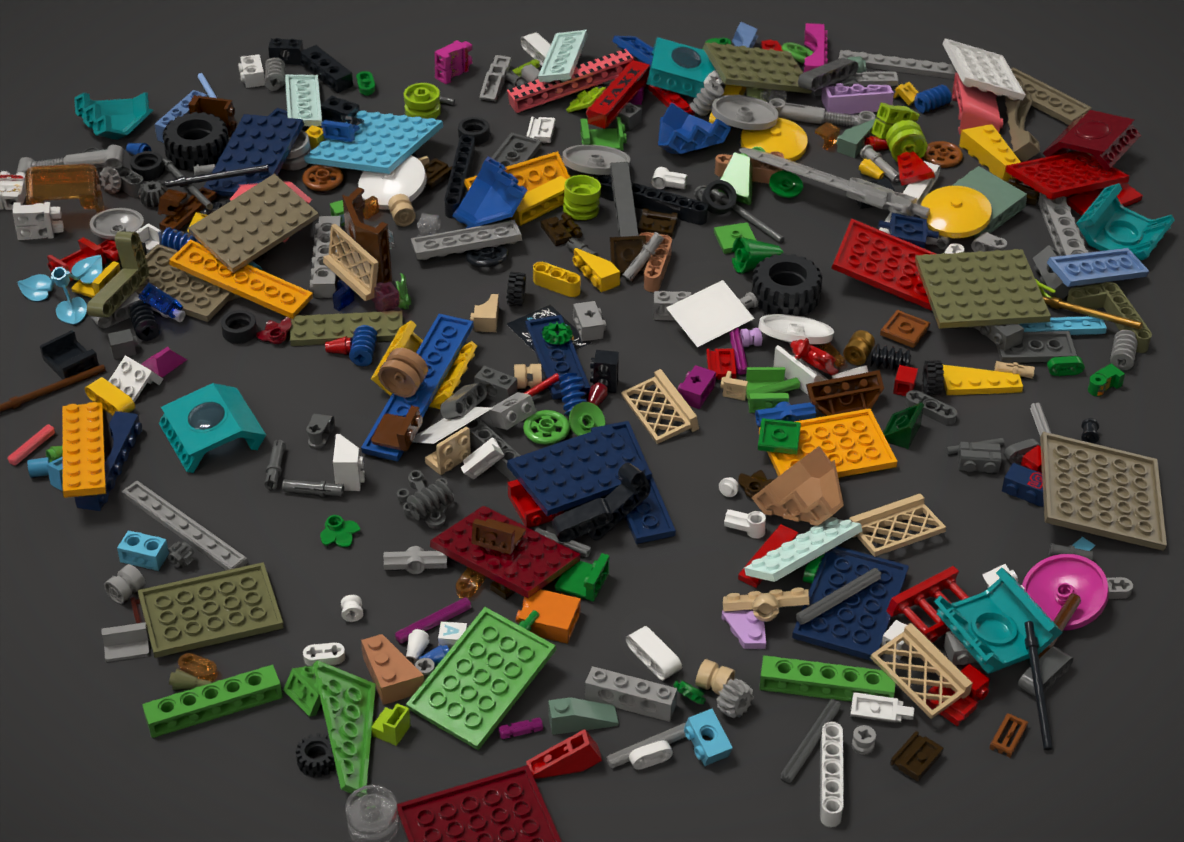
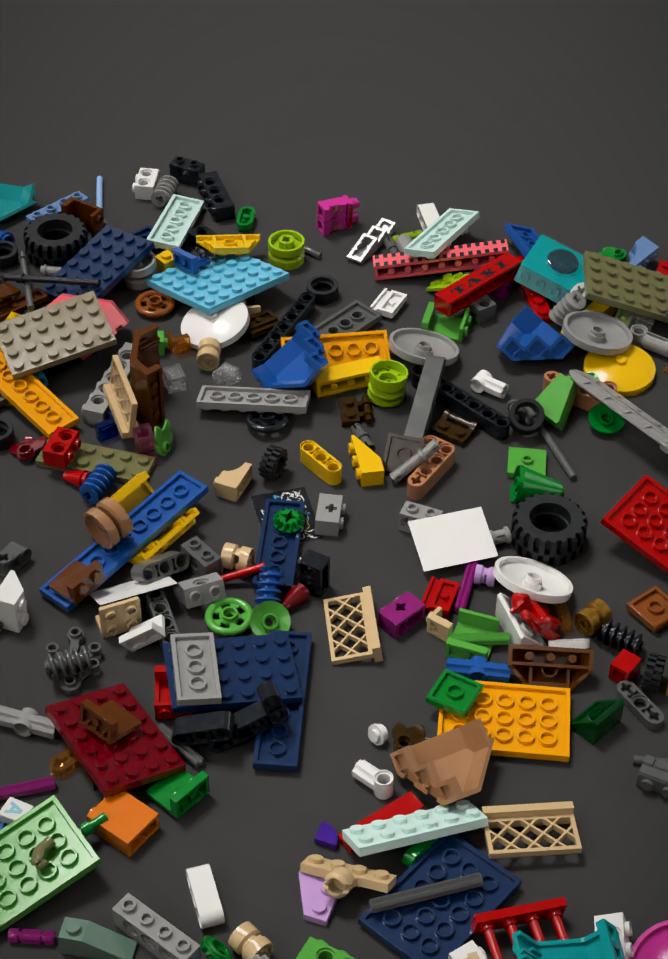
camera: 20 degrees right, 0 degrees up
(314, 321) = (61, 447): none -> red brick
(367, 108) = (229, 244): none -> yellow wing
(499, 657) = (39, 852): none -> olive arm
(553, 472) = (195, 669): none -> light grey plate
(729, 579) = (326, 836): none -> dark purple tile

